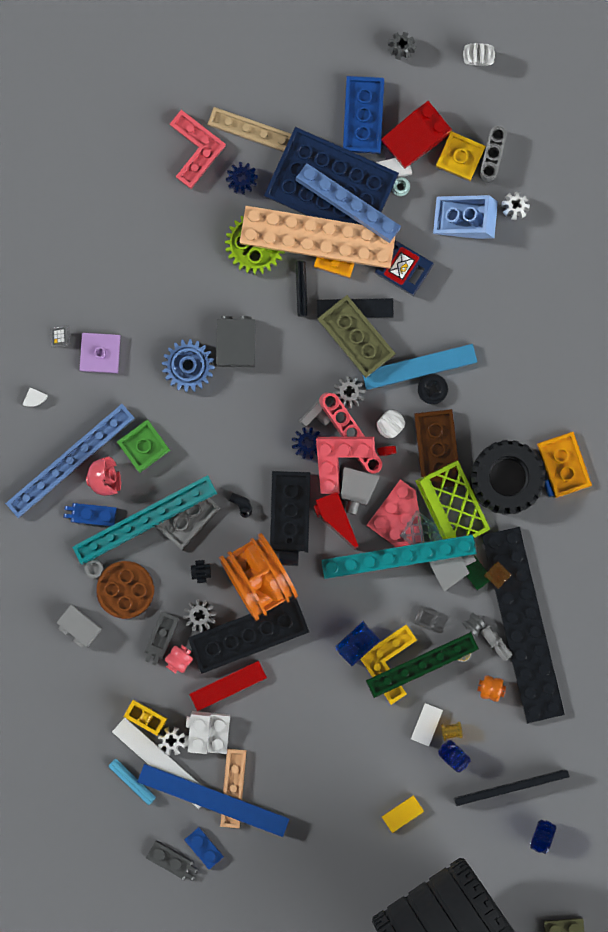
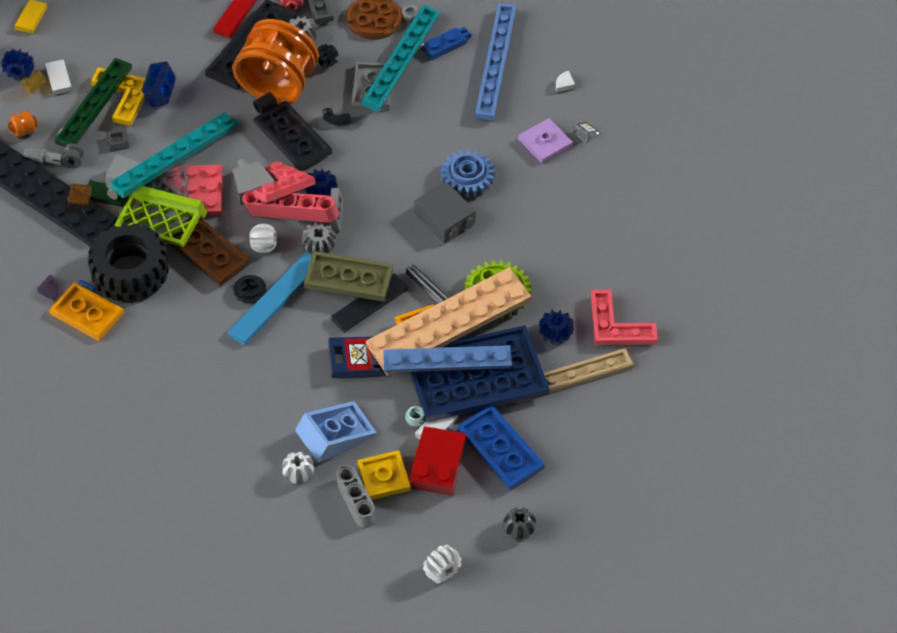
camera: 135 degrees right, 30 degrees down
(103, 477) = (458, 62): coral cylinder -> none
(143, 446) = (449, 104): bright green plate -> none
(334, 515) = (246, 142): red slope -> none
(386, 451) = (250, 220): red tile -> none
(576, 508) = (49, 288): none -> clear purple tile

